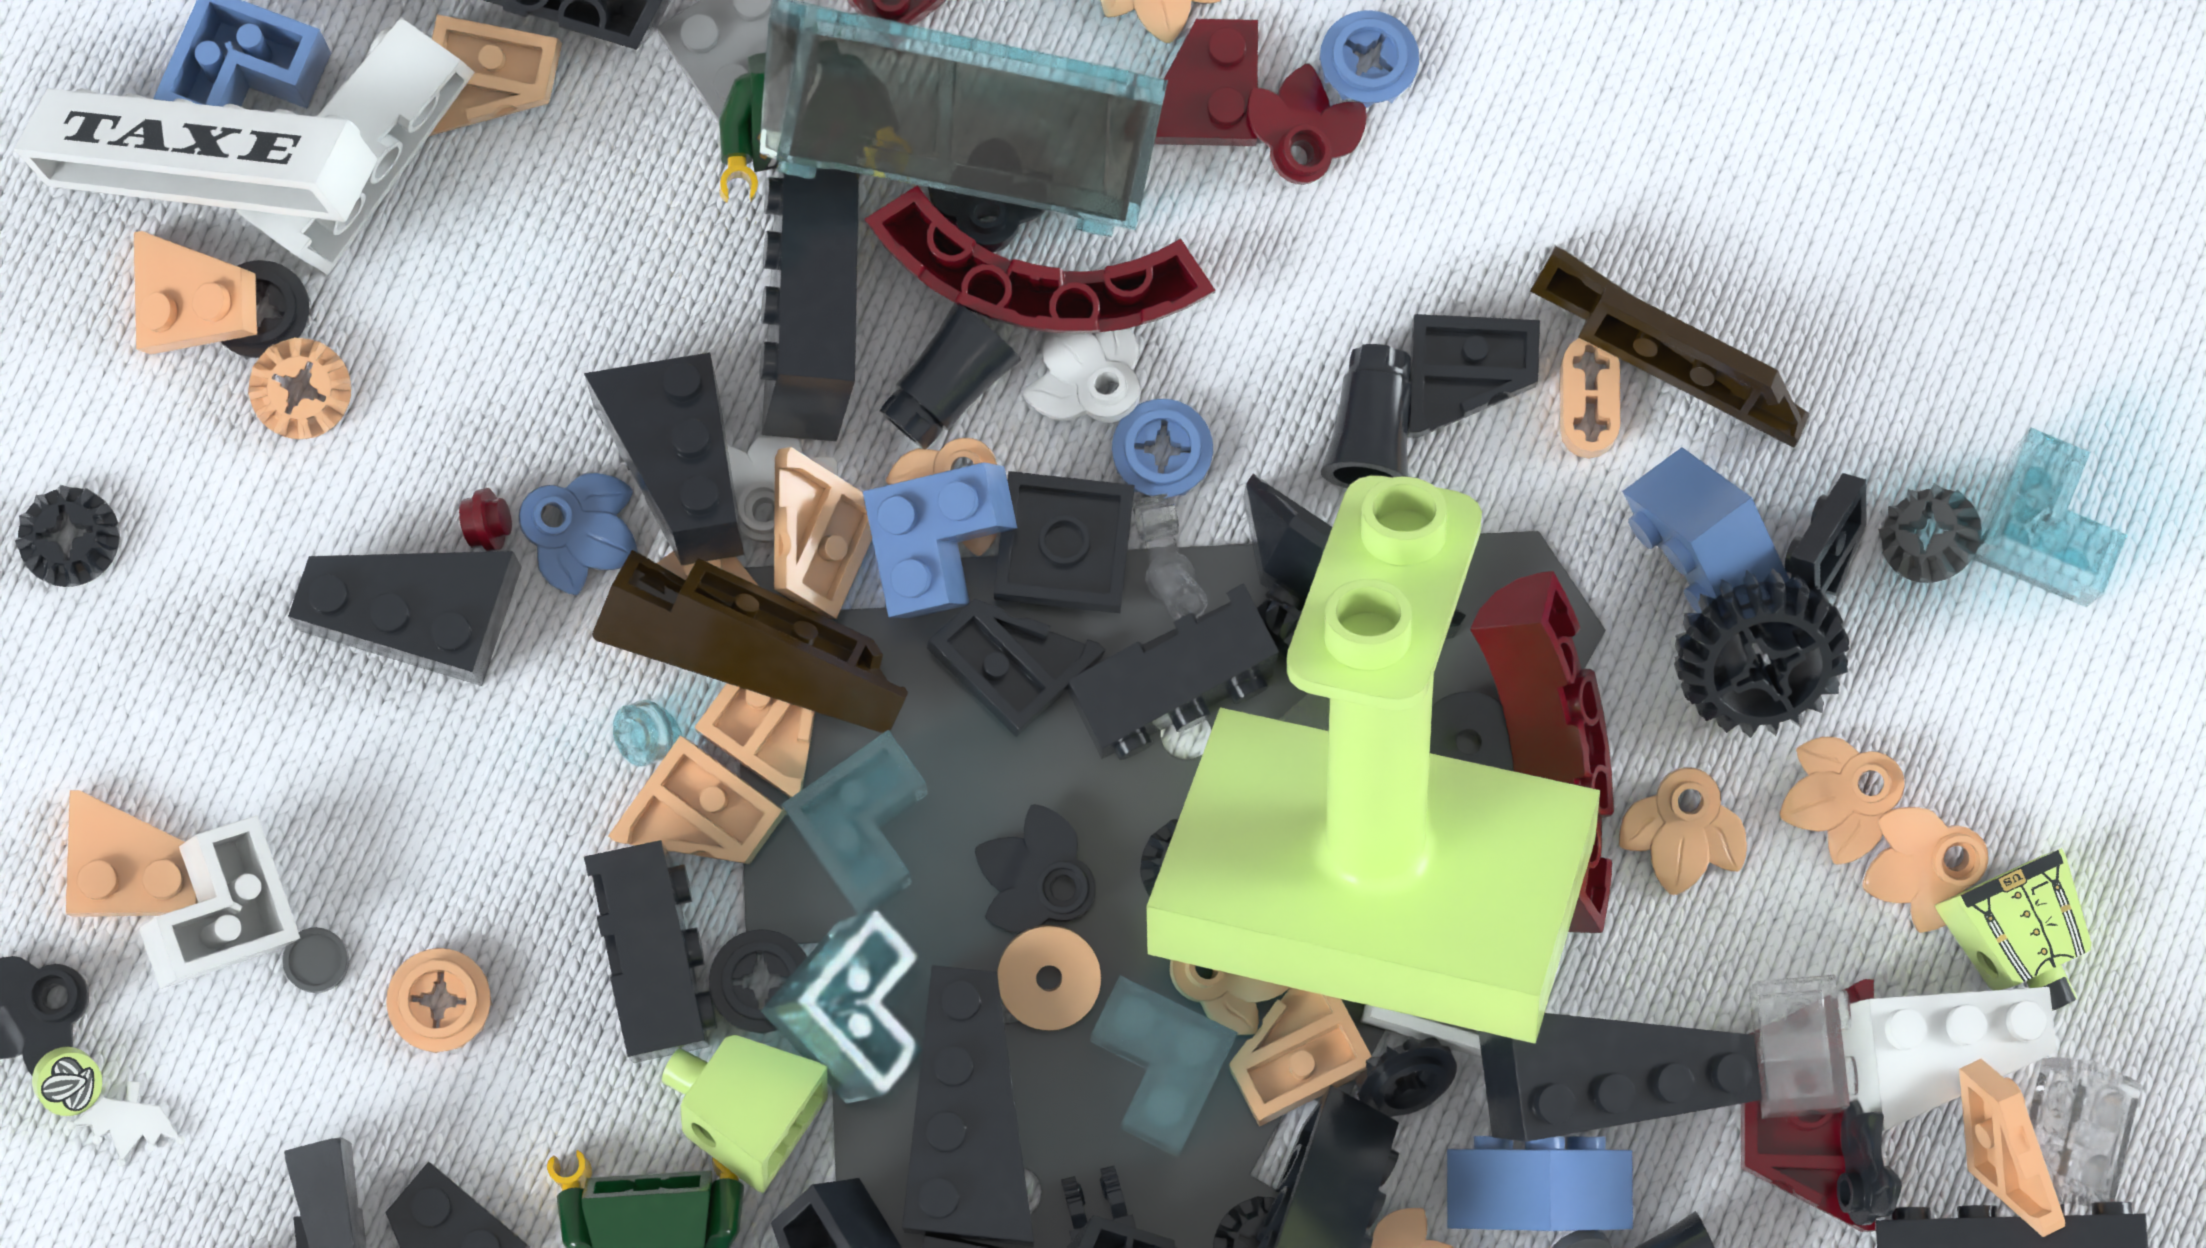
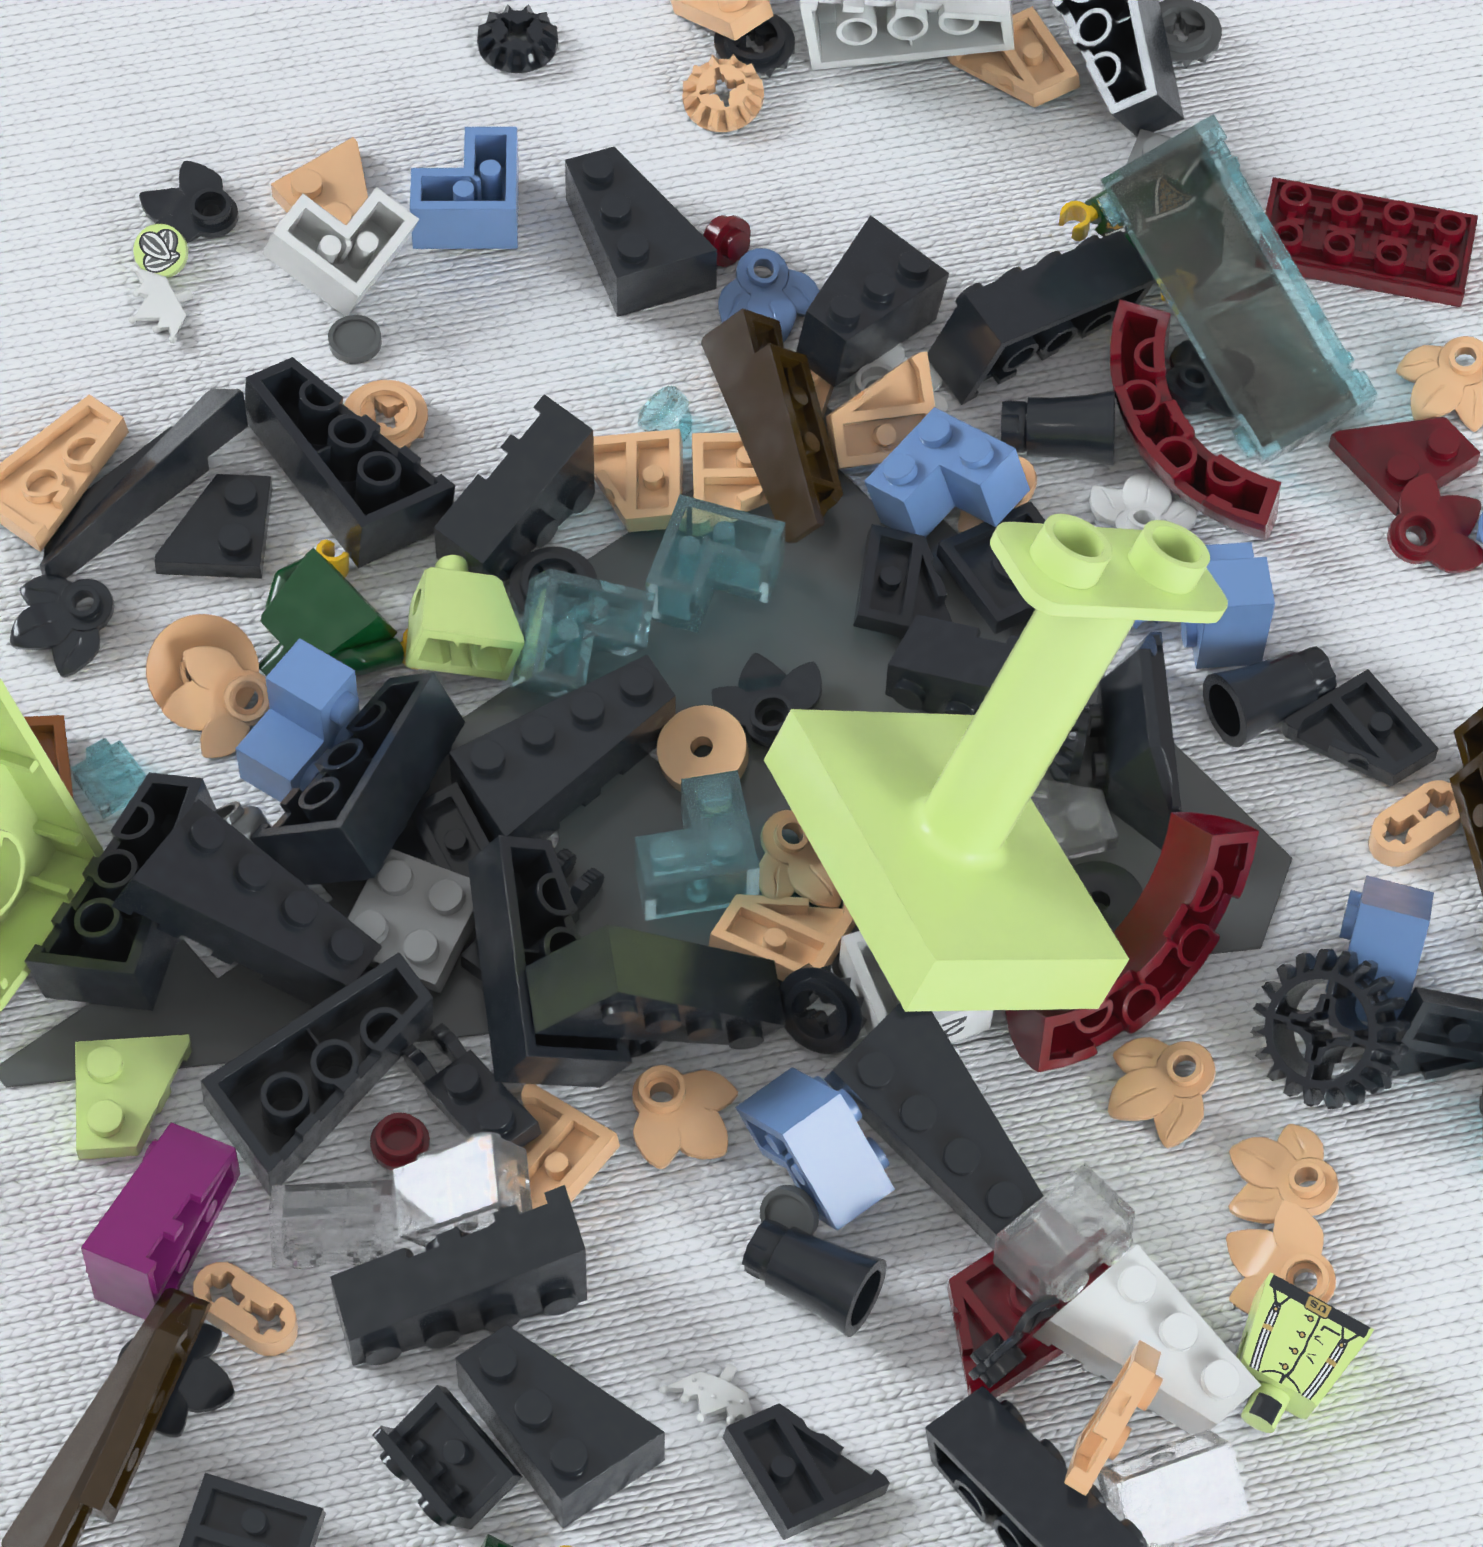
camera: 55 degrees right, 20 degrees down
(263, 734) = (473, 203): none -> medium blue brick
(486, 1087) = (346, 470): none -> black wedge
(1251, 384) = (1244, 627): none -> medium blue brick

